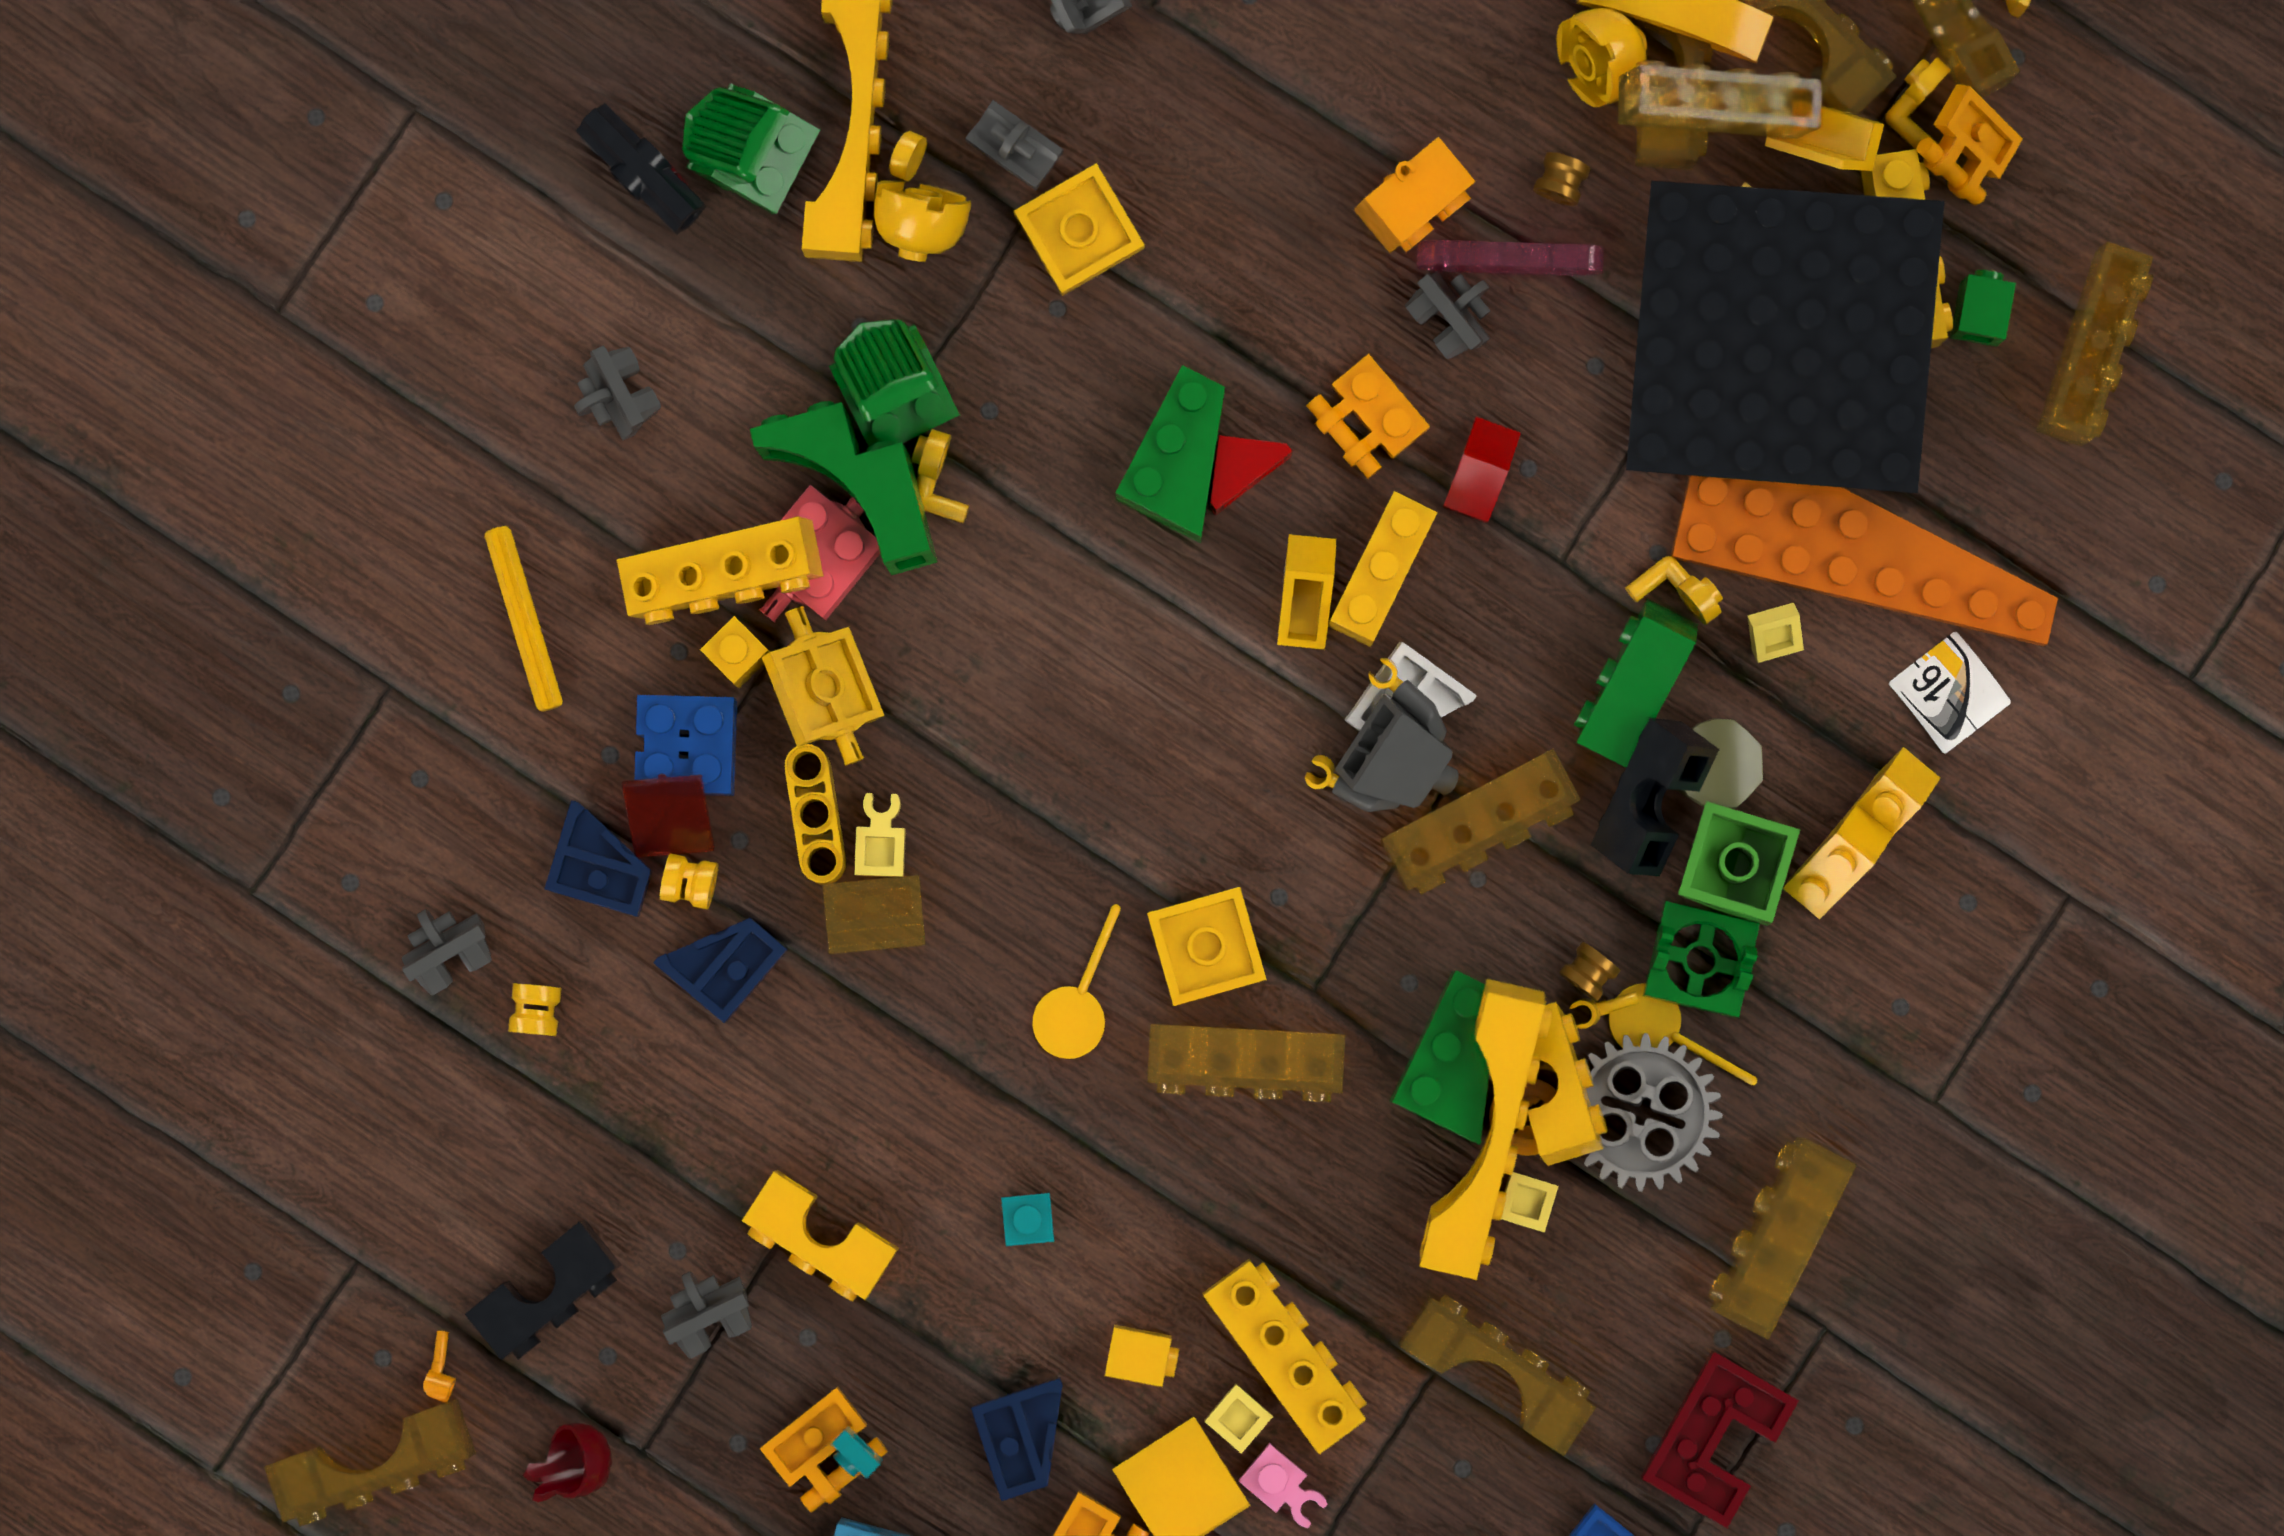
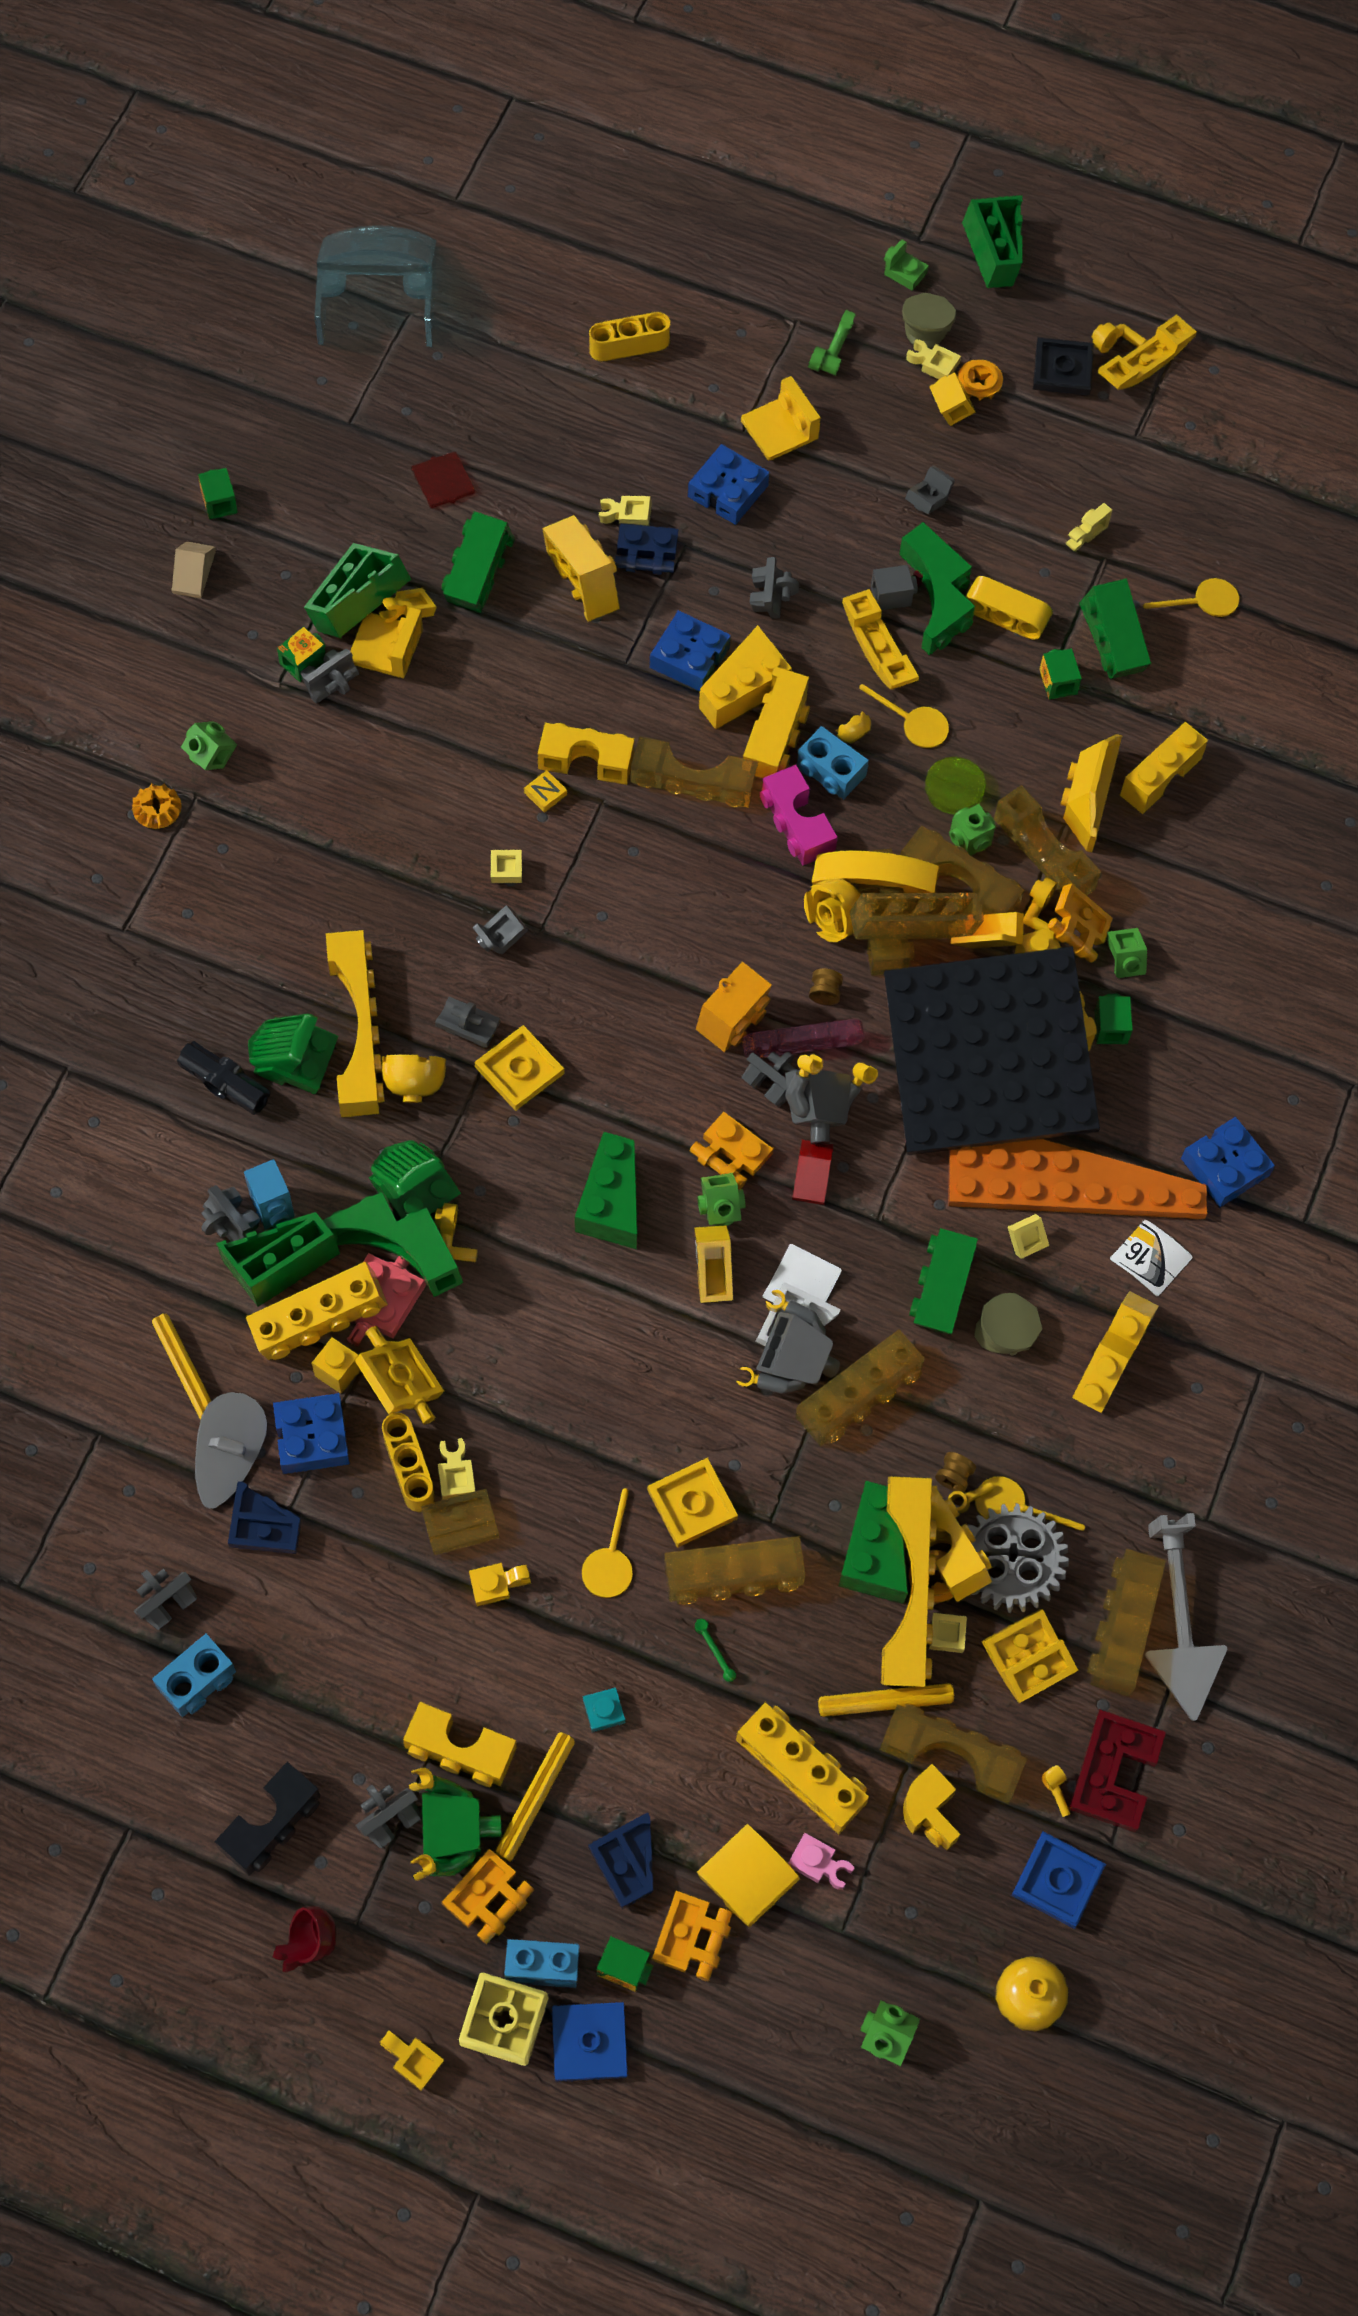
camera: 15 degrees left, 20 degrees down
(313, 1481) = (120, 1990): clear yellow arch -> none
(436, 1383) = (200, 1902): light orange hand -> none
(467, 1061) = (187, 1669): none -> dark azure brick
(531, 1020) = (233, 1626): yellow wheel -> none
(565, 741) = (227, 1445): none -> light grey shield
(668, 815) = (306, 1479): clear red piece -> none
(678, 376) = (269, 1194): none -> dark azure brick
(678, 471) = (279, 1257): none -> green wedge
(700, 881) = (335, 1521): yellow wheel -> none
(724, 966) = (361, 1575): dark blue wing -> none
(788, 1349) = (450, 1826): none -> green torso
(855, 1454) = (511, 1887): teal plate -> none
(905, 1010) = (492, 1583): none -> yellow plate
(907, 155) = (398, 1040): yellow tile -> none
(911, 1323) = (535, 1797): none -> yellow axle
(1141, 1356) = (701, 1787): yellow brick -> none
(1186, 1125) = (701, 1627): none -> green hinge
(1238, 1418) = (779, 1818): light yellow plate -> none
(1241, 466) = (655, 1192): red slope -> none
(1336, 497) = (721, 1199): none -> bright green brick
(1382, 569) = (760, 1240): yellow arch -> none
(1418, 1279) = (885, 1699): none -> yellow axle
(1435, 630) = (805, 1273): none -> white sticker
(1442, 1431) = (921, 1806): none -> yellow brick
(1519, 365) = (823, 1097): none -> dark grey torso
(1627, 1432) = (1052, 1780): none -> yellow hand
(1633, 826) = (962, 1366): black arch -> none
(1635, 1253) = (1029, 1656): none -> yellow slope
(1698, 595) = (971, 1221): yellow plate -> none
(1738, 863) = (1039, 1381): bright green slope -> none
(1740, 931) = (1052, 1431): green piece -> none
(1851, 1314) = (1188, 1669): none -> light grey piece
(2032, 200) = (1128, 952): none -> bright green bracket
(2095, 344) = (1190, 1026): clear yellow brick -> none
(2099, 567) = (1227, 1162): none -> blue piece

